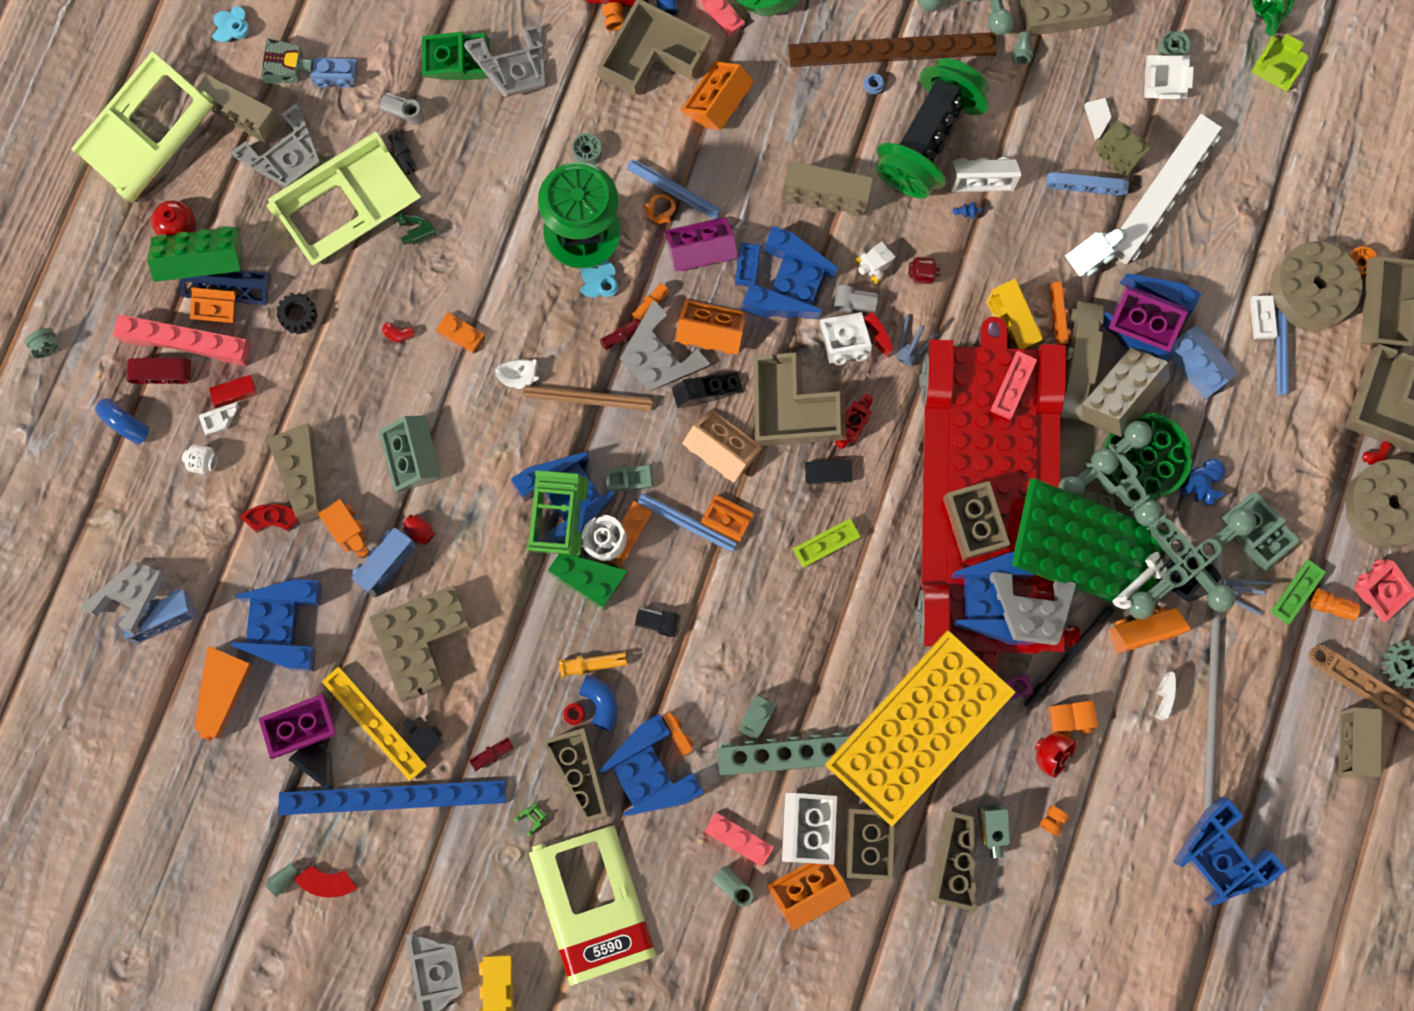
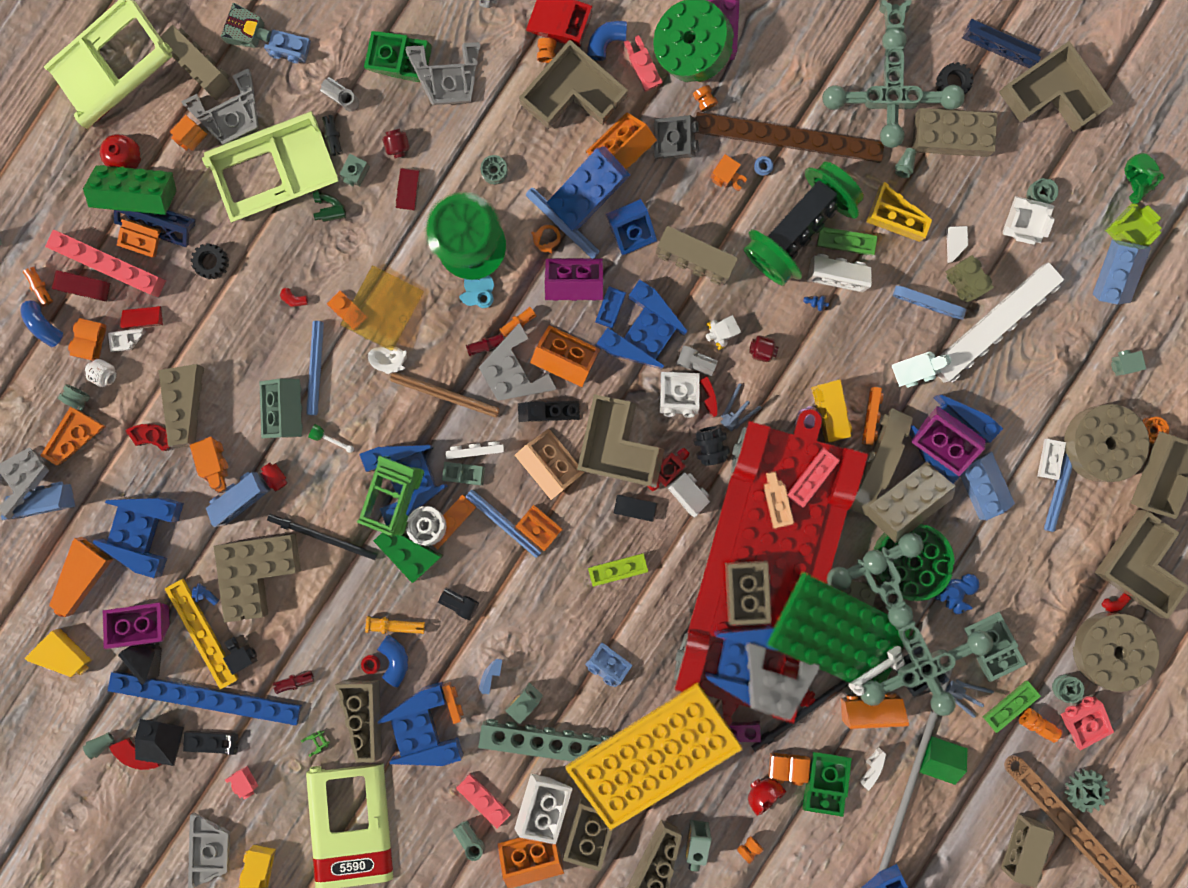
camera: 20 degrees right, 10 degrees up
(109, 382) = (37, 286): none -> orange pin
(175, 492) = (73, 397): none -> sand green wheel
(177, 427) = (87, 339): none -> orange brick
(179, 536) = (70, 436): none -> orange wing
(215, 785) = (59, 654): none -> yellow slope
(247, 182) = (187, 133): none -> orange brick
(350, 858) = (157, 742): none -> black slope
(362, 677) = (200, 592): none -> blue plate
(409, 847) = (210, 742): none -> black plate
(435, 183) = (354, 170): none -> sand green brick
(438, 402) = (315, 367): none -> medium blue axle
(445, 579) = (287, 524): none -> black bar
(457, 471) = (317, 433): none -> hinge
(458, 883) = (242, 782): none -> coral brick
(474, 145) = (396, 143): none -> dark red head
(497, 190) = (407, 189): none -> dark red slope
(498, 320) = (382, 308): none -> clear yellow piece
(637, 449) = (475, 450): none -> white plate
(694, 143) = (588, 188): none -> blue brick
(709, 700) = (493, 669): none -> medium blue slope
(749, 176) = (631, 227): none -> blue slope
(773, 74) = (675, 137): none -> dark grey plate
(794, 28) = (705, 98): none -> orange wheel
(836, 97) = (726, 172): none -> orange brick
(842, 651) = (608, 665): none -> medium blue bracket
(882, 442) = (688, 494): none -> white slope
(894, 384) = (711, 445): none -> black piece
(982, 140) = (847, 241): none -> bright green plate
(982, 419) = (777, 501): none -> light nougat hinge
(1029, 101) = (898, 215): none -> yellow wedge
(1120, 726) = (827, 784): none -> green slope
(1242, 670) = (944, 760): none -> green slope
(1279, 107) = (1121, 272): none -> medium blue slope
(1314, 199) = (1128, 362): none -> sand green brick
(1344, 560) = (1060, 690): none -> sand green wheel

